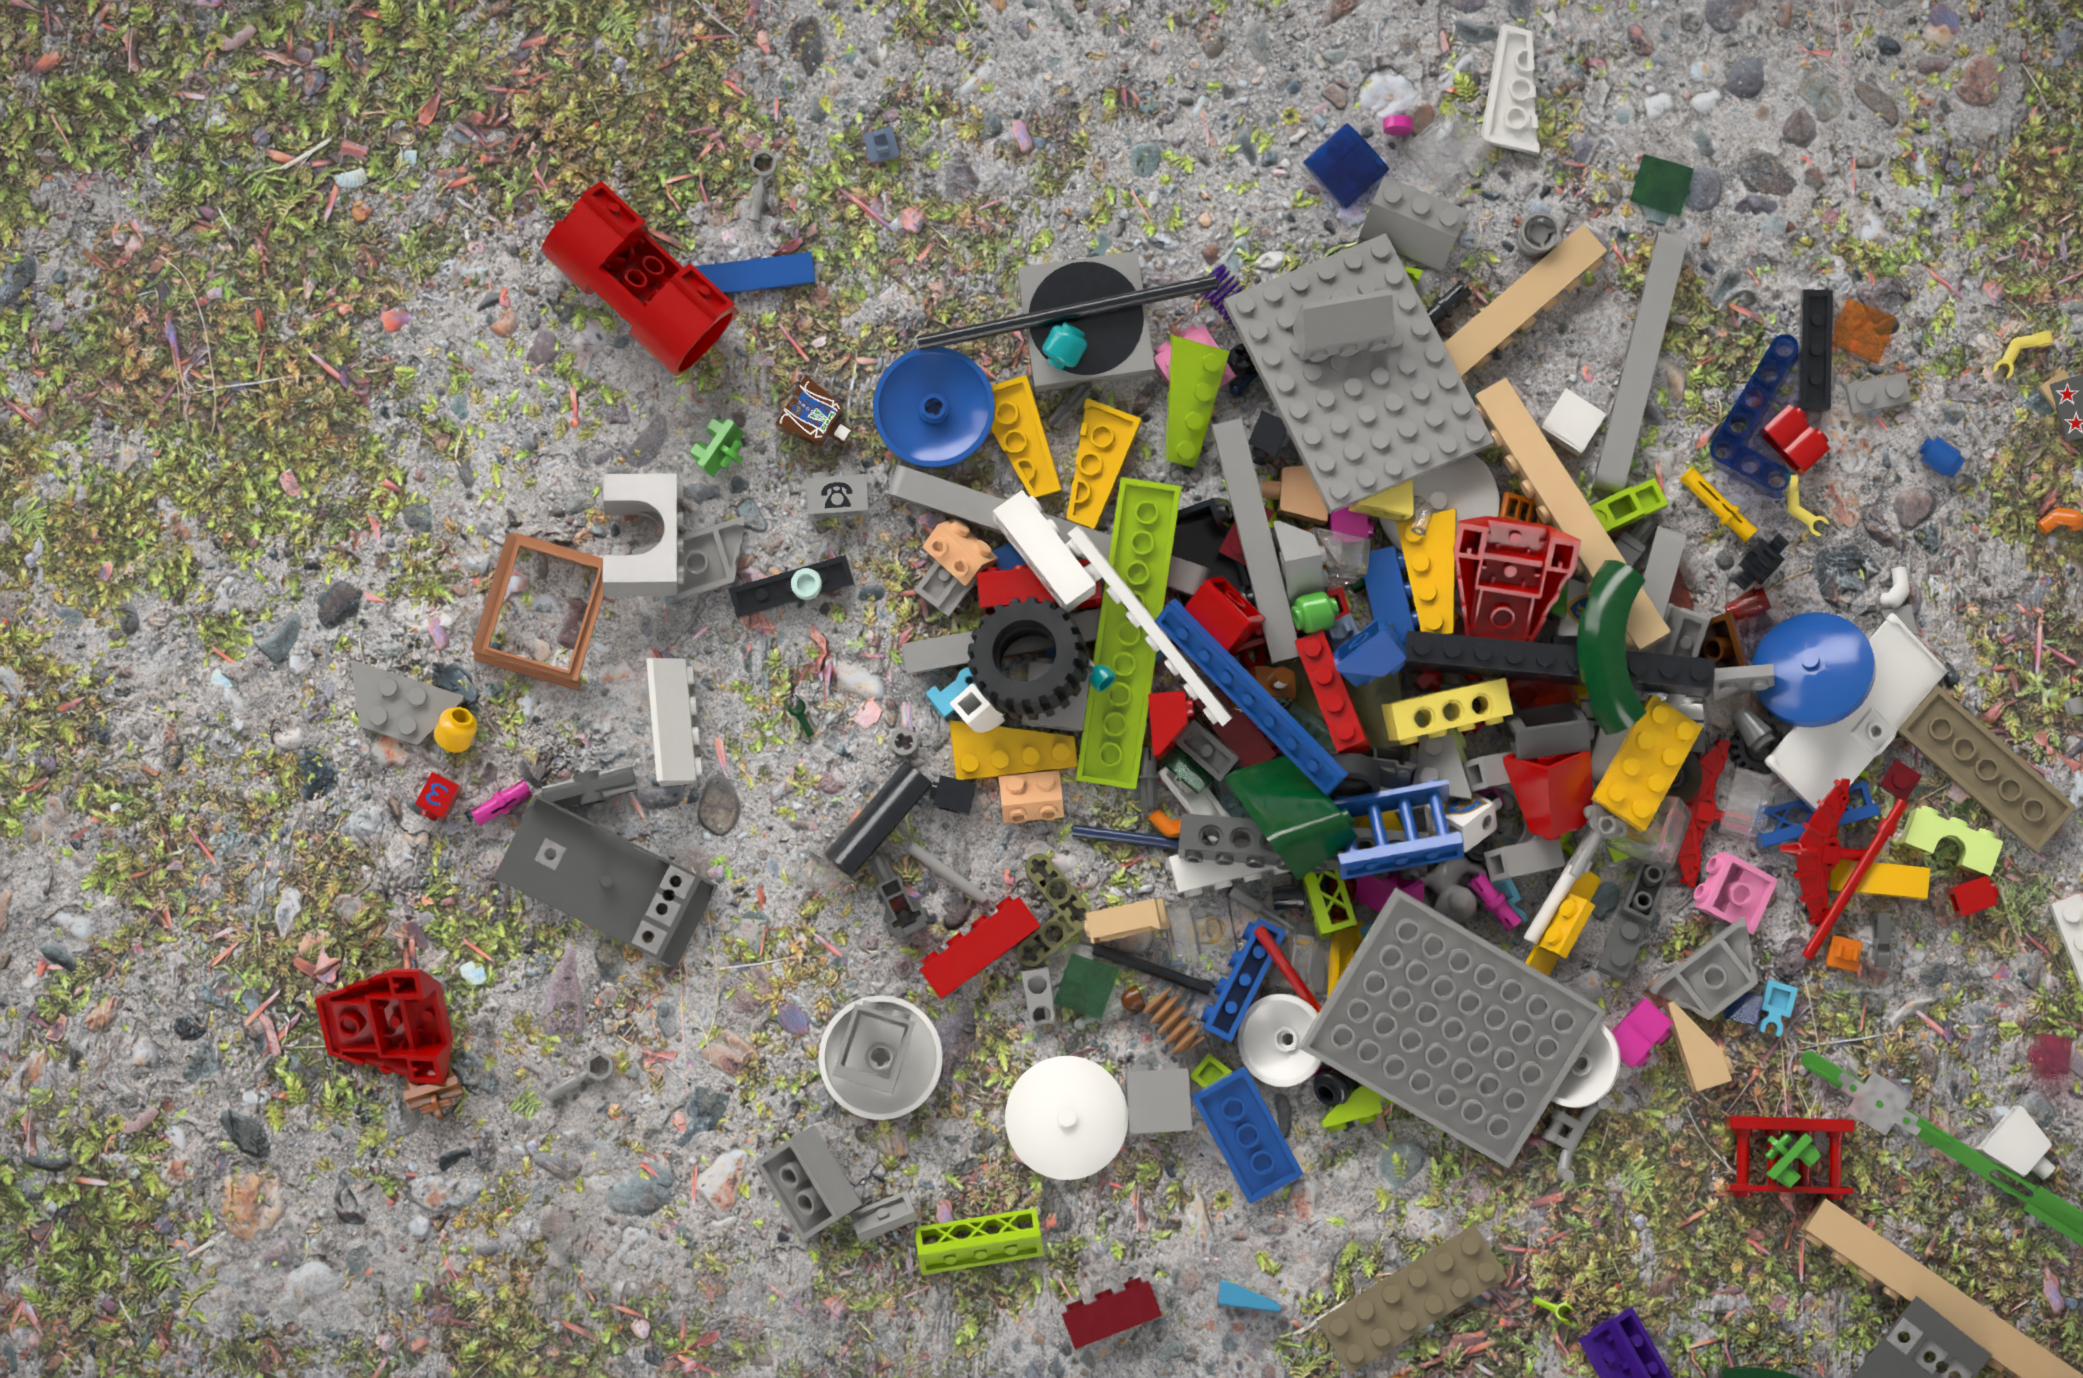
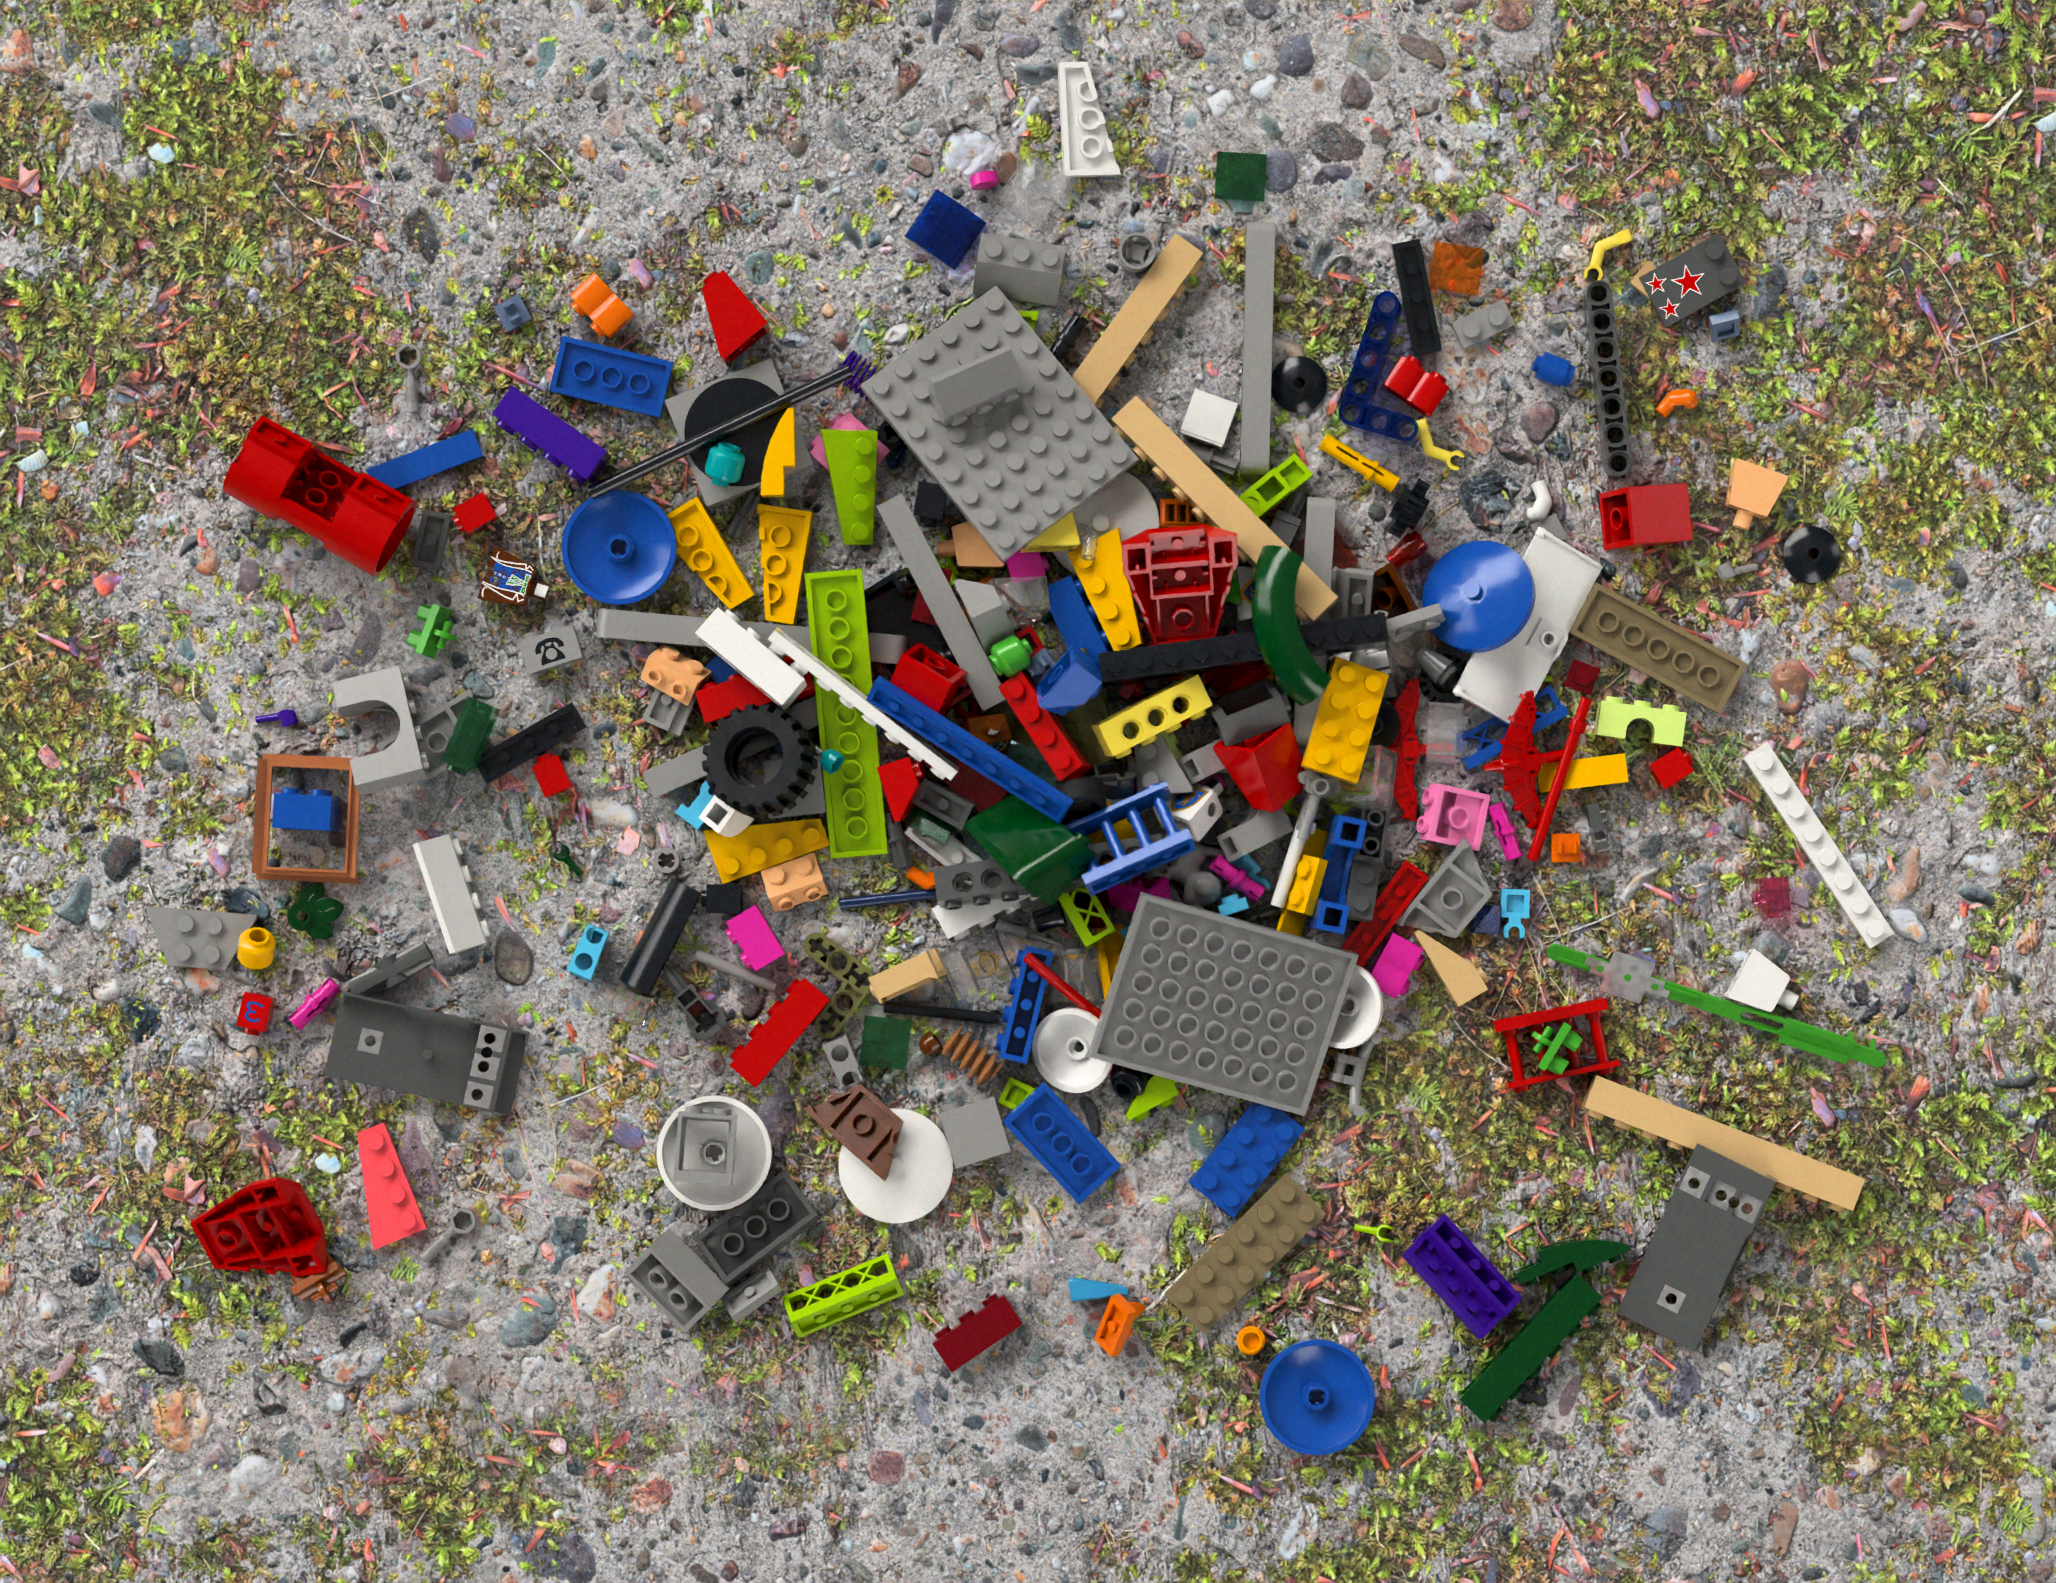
camera: 10 degrees left, 5 degrees up
(529, 708) = (319, 912): none -> dark green plate
(529, 1021) = (388, 1192): none -> coral wing
(542, 599) = (306, 812): none -> blue slope
(546, 499) = (286, 717): none -> dark purple hand
(733, 561) = (470, 736): none -> clear green window
(741, 354) = (431, 540): none -> dark grey plate
(792, 339) = (474, 514): none -> red brick
(799, 818) = (588, 953): none -> medium azure leg
(806, 584) = (542, 738): light aqua tile -> none
(806, 625) = (552, 775): none -> red brick
(892, 276) = (552, 435): none -> dark purple brick
(905, 1148) = (757, 1228): none -> dark grey slope
(967, 233) = (611, 377): none -> blue plate
(974, 158) = (601, 306): none -> orange brick
(977, 844) = (755, 938): none -> dark pink brick
(1041, 1066) = (861, 1126): none -> reddish brown wing
(1108, 200) = (732, 316): none -> red slope
(1122, 352) = (779, 456): none -> yellow slope
(1261, 1339) = (1117, 1323): none -> orange tile
(1436, 1196) = (1246, 1156): none -> blue plate
(1485, 927) = (1232, 904): none -> medium azure plate
(1512, 944) = (1261, 913): none -> dark grey piece
(1575, 469) = (1213, 459): none -> light grey axle
(1615, 887) = (1342, 841): none -> blue arch
(1645, 972) = (1387, 910): none -> red plate
(1669, 424) = (1293, 398): none -> black dish
(1784, 921) = (1505, 831): none -> dark pink pin
(2003, 629) = (1645, 516): none -> red slope
(2004, 469) = (1609, 365): none -> dark grey beam

